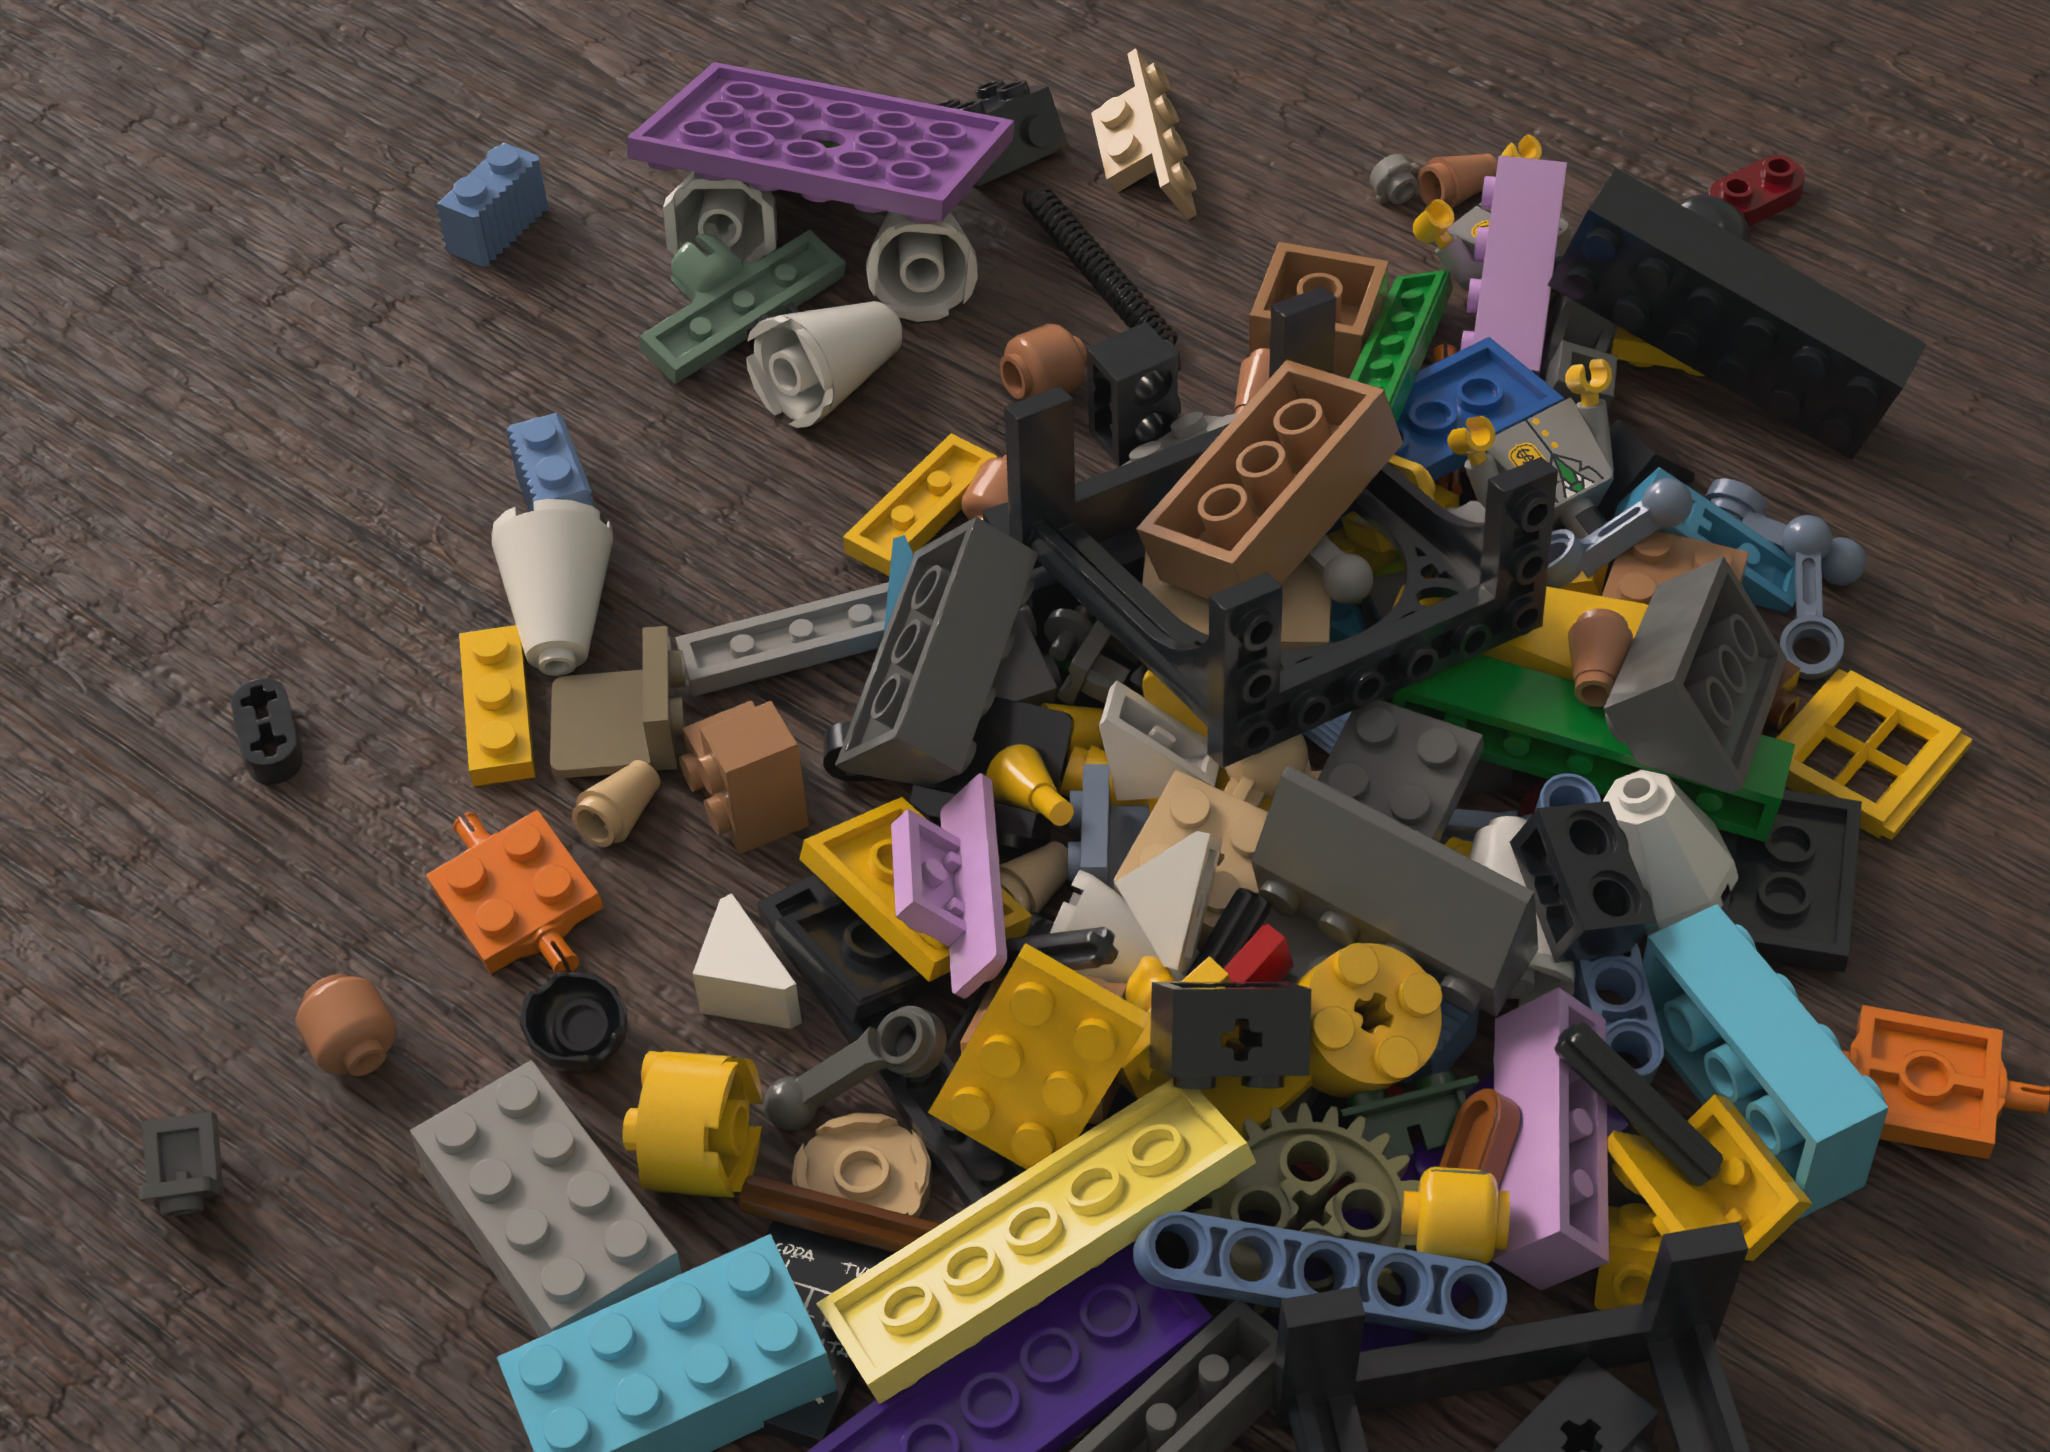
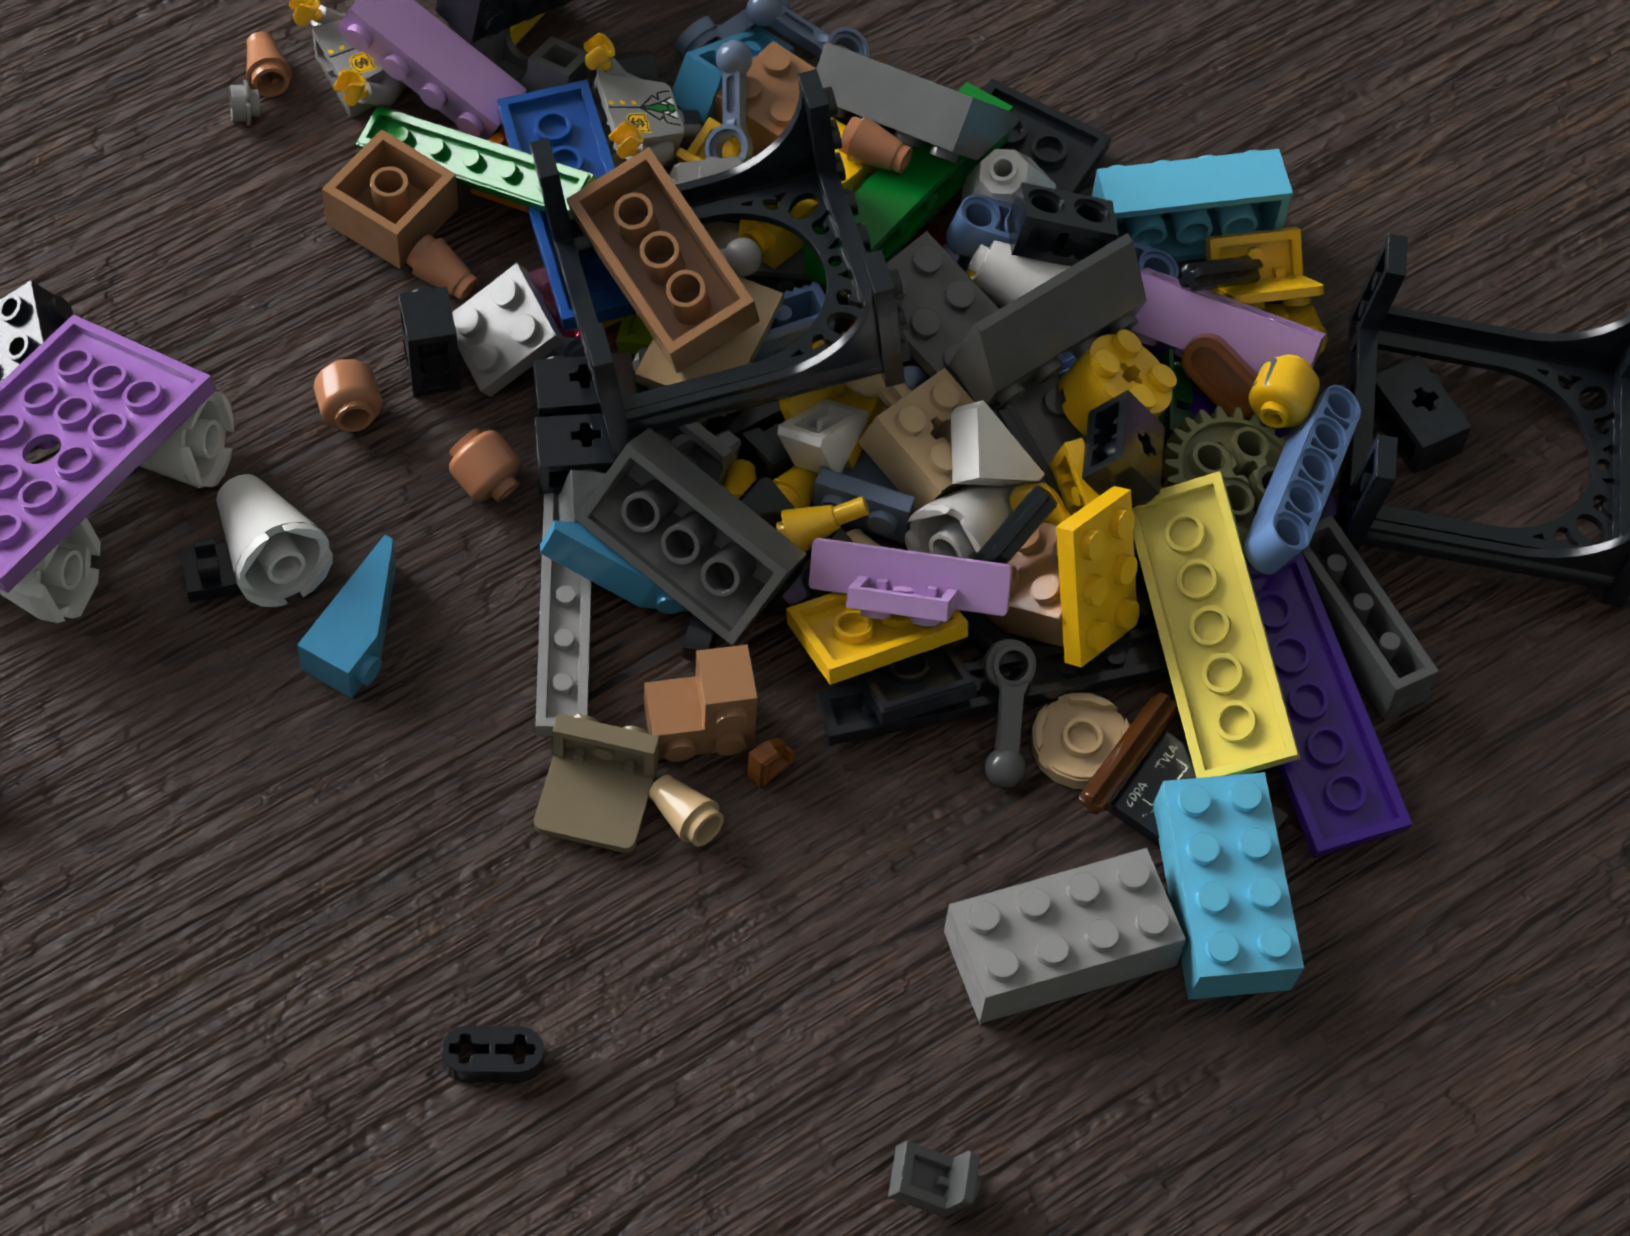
camera: 80 degrees left, 10 degrees up
(344, 1023) = (844, 1038): nougat head -> none
(496, 706) = (534, 877): yellow plate -> none
(515, 892) = (742, 903): orange plate -> none
(547, 461) = (313, 774): medium blue brick -> none
(553, 578) = (448, 796): white cone -> none
(574, 1021) = (899, 881): black hair -> none
(694, 1123) = (1031, 816): yellow brick -> none
(712, 860) = (769, 761): none -> dark orange tile
(732, 296) = (145, 590): sand green plate -> none
(741, 974) = (883, 762): white slope -> none
(759, 461) = (350, 634): none -> dark azure slope
(917, 504) = (457, 524): yellow plate -> none
(1107, 296) = (245, 327): black piece -> none
(1140, 136) = (93, 252): tan bracket -> none
(1261, 958) = (1052, 427): red tile -> none
(1912, 783) = (958, 30): yellow piece -> none
(1939, 1080) = (1212, 127): orange plate -> none

